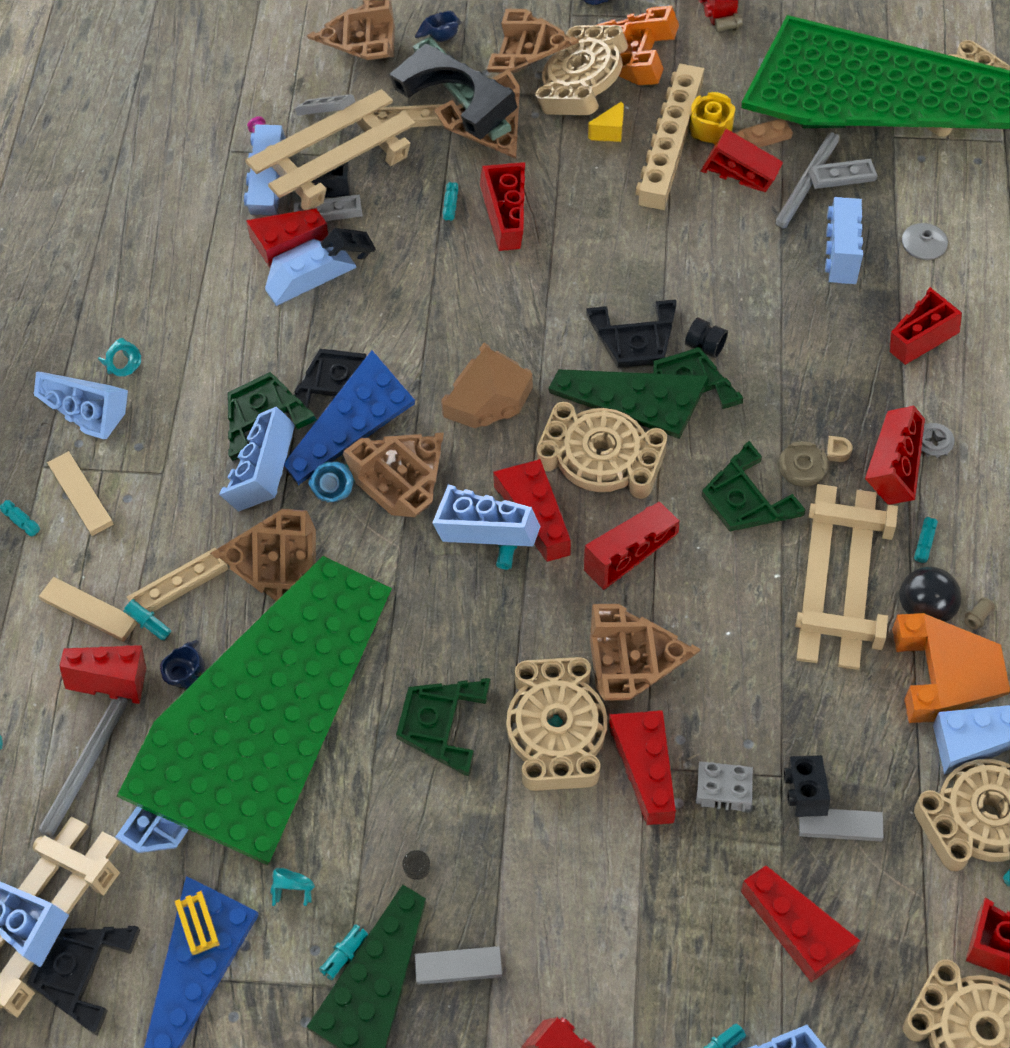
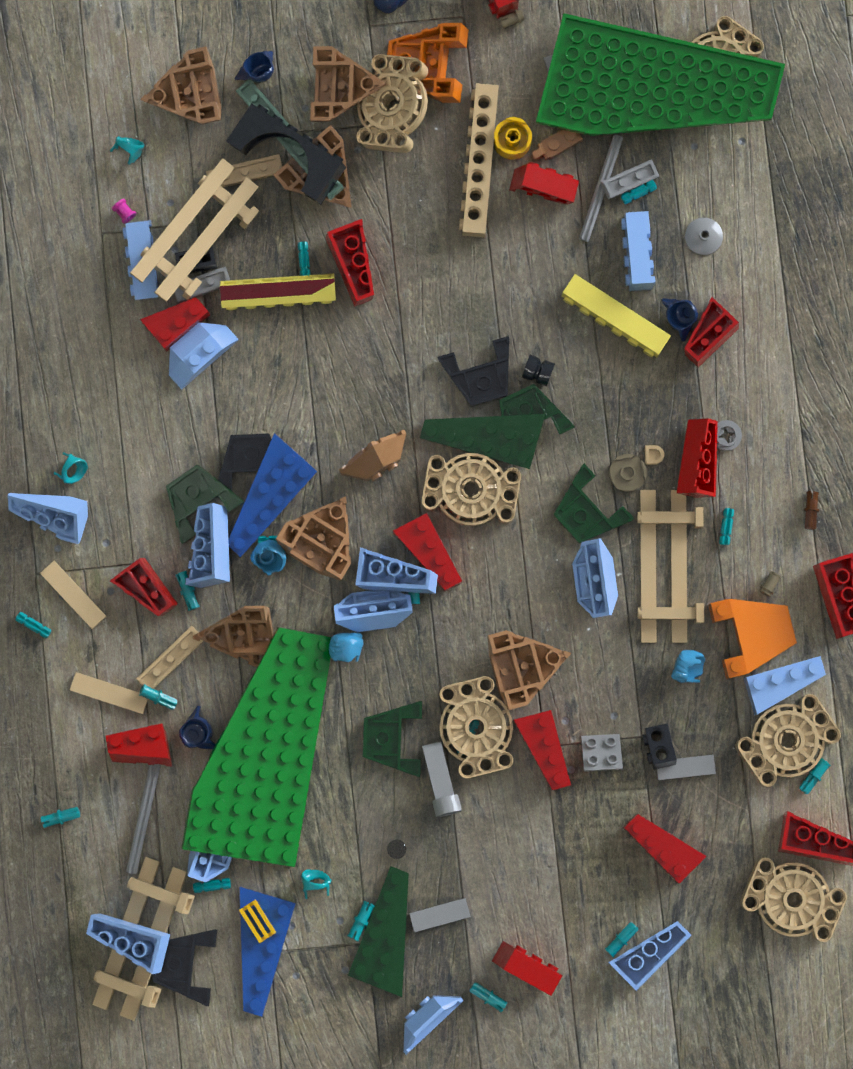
camera: 15 degrees left, 25 degrees up
(149, 868) = (212, 885): none -> teal axle
(169, 491) = (146, 587): none -> red wedge
(220, 509) = (187, 591): none -> teal pin
(288, 76) = (130, 145): none -> teal piece
(325, 104) = (176, 181): light grey tile -> none
(348, 240) = (232, 329): black hinge -> none
(403, 593) = (346, 646): none -> dark azure hair
(413, 220) = (277, 290): none -> brick
(448, 563) = (372, 610): none -> light blue wedge
(497, 808) = (445, 801): none -> light grey beam
(607, 125) = (426, 157): yellow slope -> none
(629, 544) = (507, 570): red wedge -> none
(745, 565) = (595, 578): none -> light blue wedge
(810, 298) = (616, 316): none -> light yellow brick
(852, 188) = (638, 192): none -> teal axle
(859, 690) = (688, 666): none -> dark azure hair
(890, 306) = (680, 315): none -> dark blue piece
(931, 592) = (733, 573): black piece -> none

